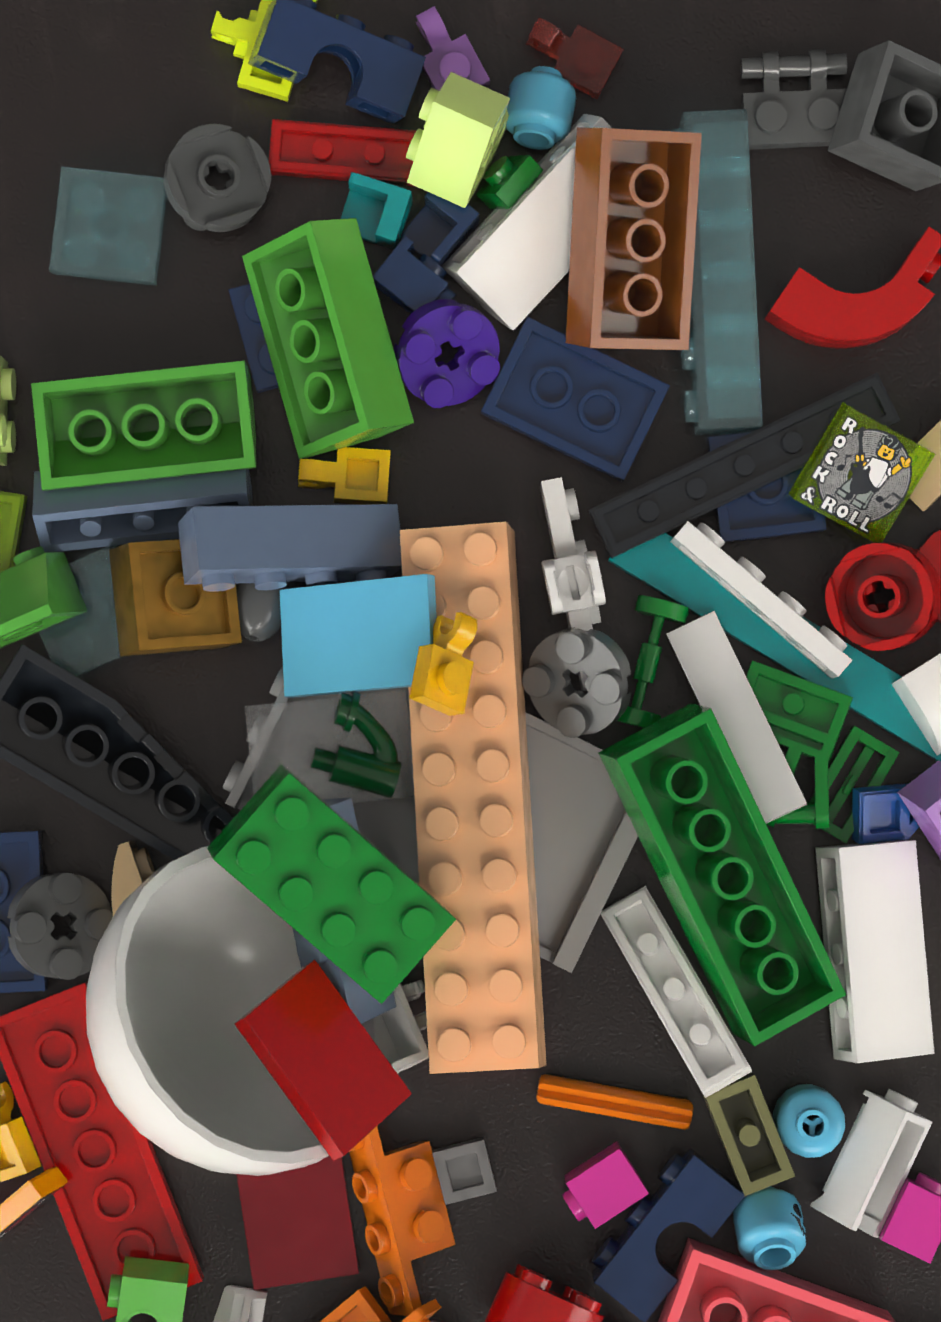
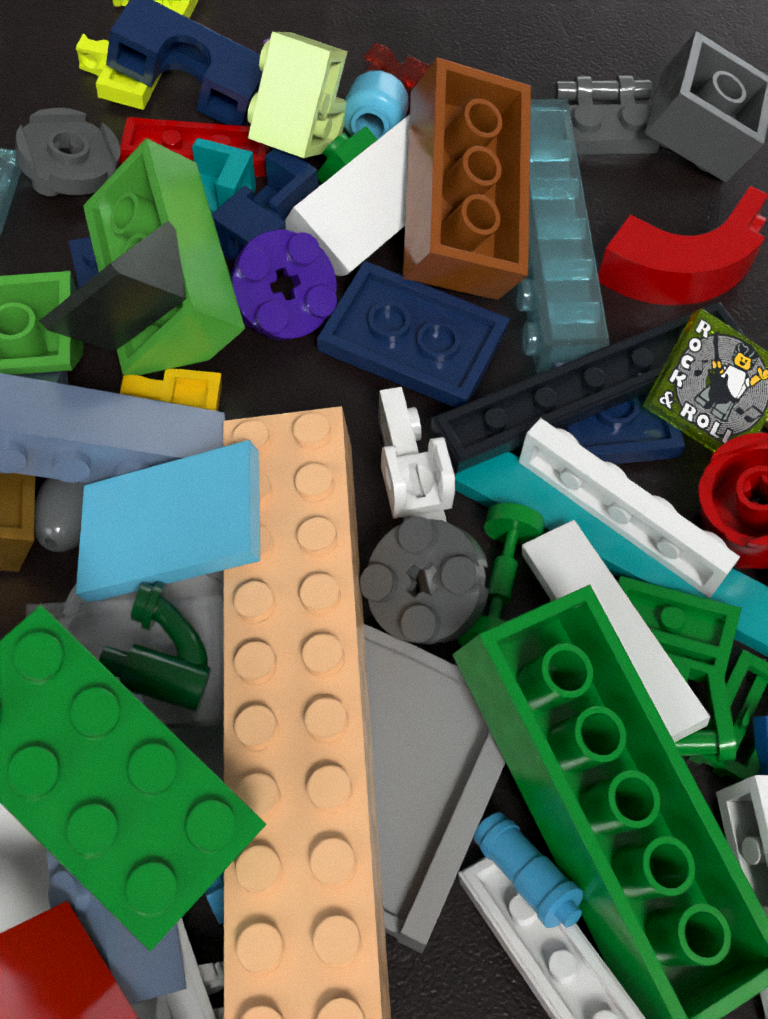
camera: 10 degrees left, 25 degrees down
(300, 390) = (125, 294): none -> pearl dark grey slope
(440, 671) = (259, 536): yellow plate -> none
(654, 920) = (531, 873): none -> dark azure piece

